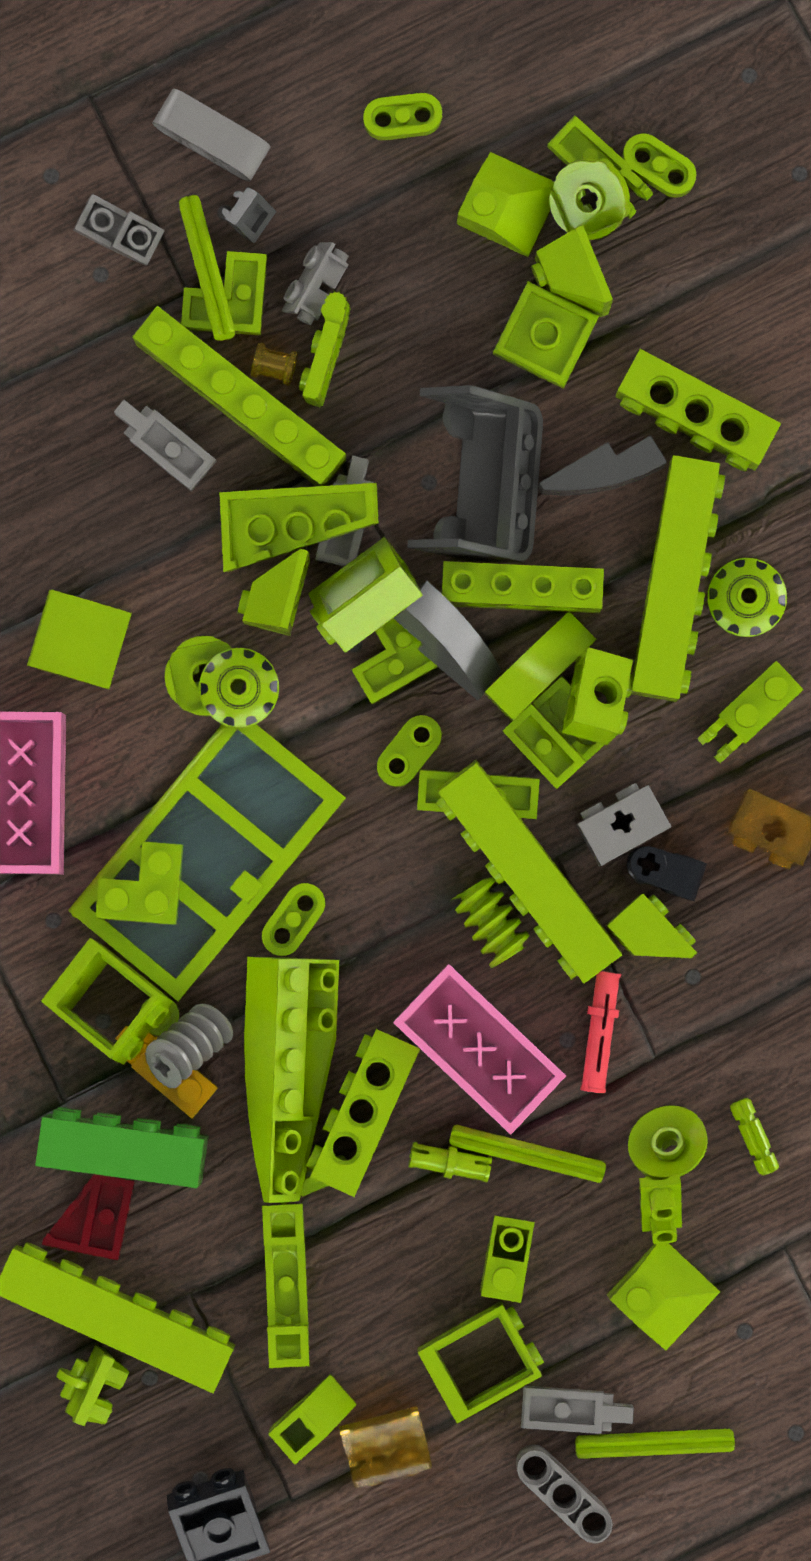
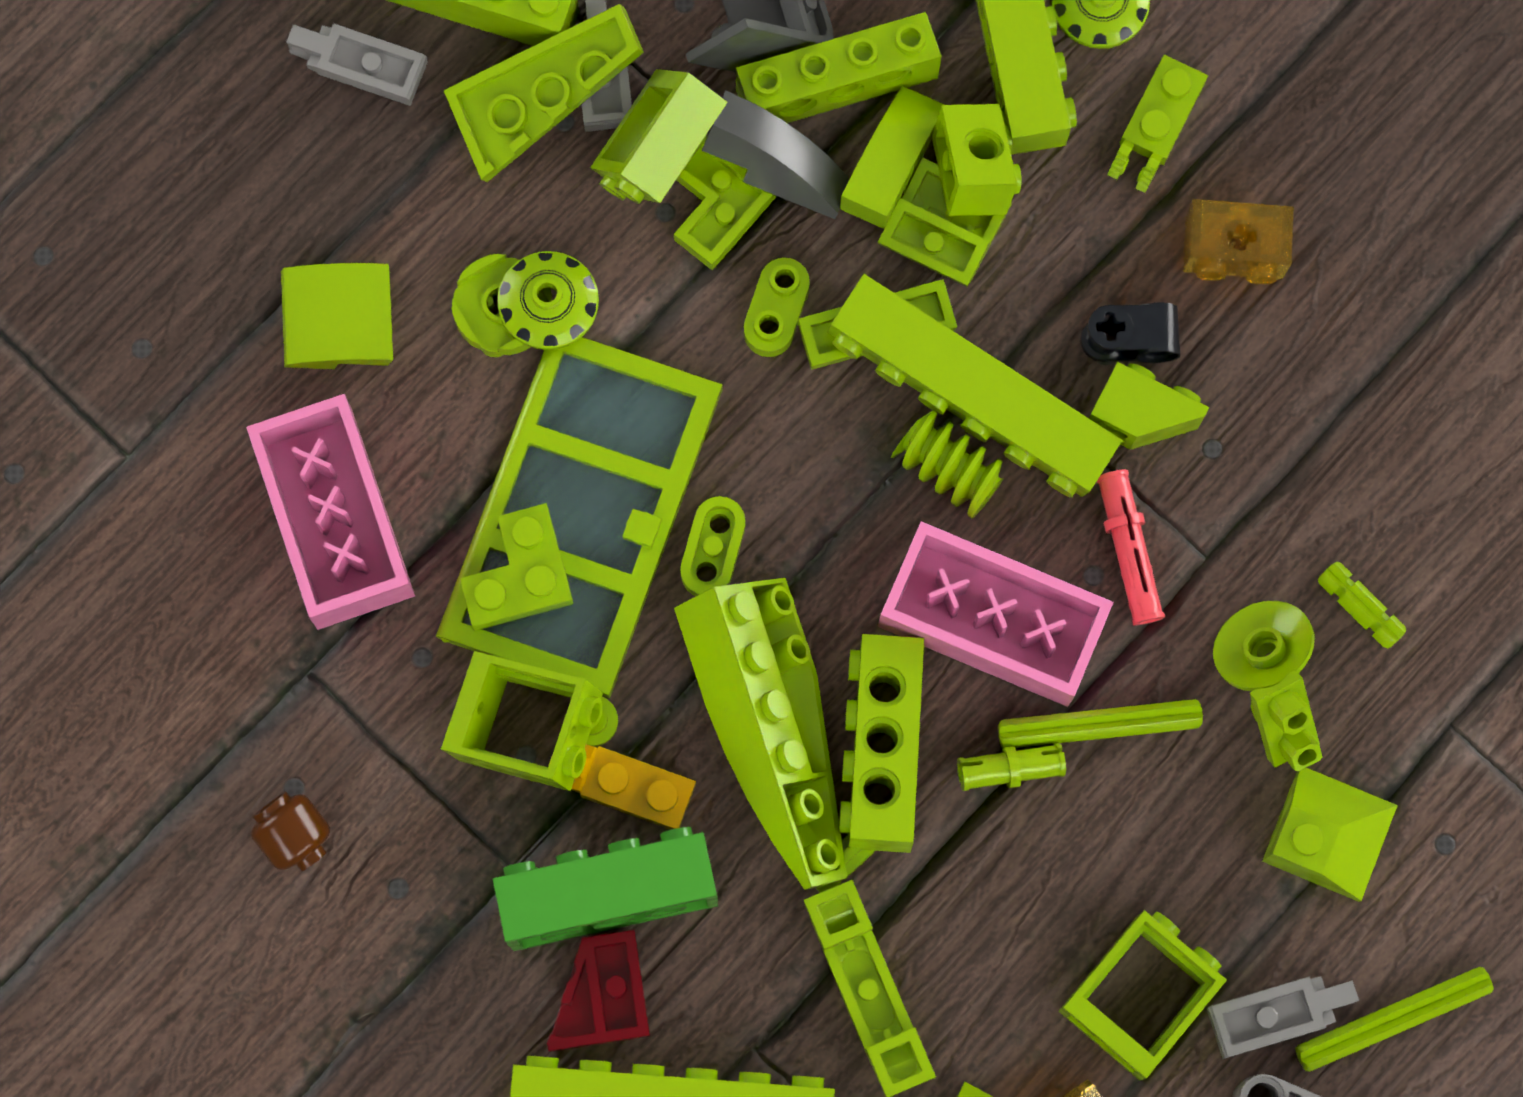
camera: 20 degrees left, 10 degrees down
(188, 1044) = (640, 735): light grey piece -> none
(276, 595) = (552, 179): lime slope -> none
(507, 1259) = (1126, 854): lime slope -> none
(646, 823) = (1050, 324): light grey brick -> none

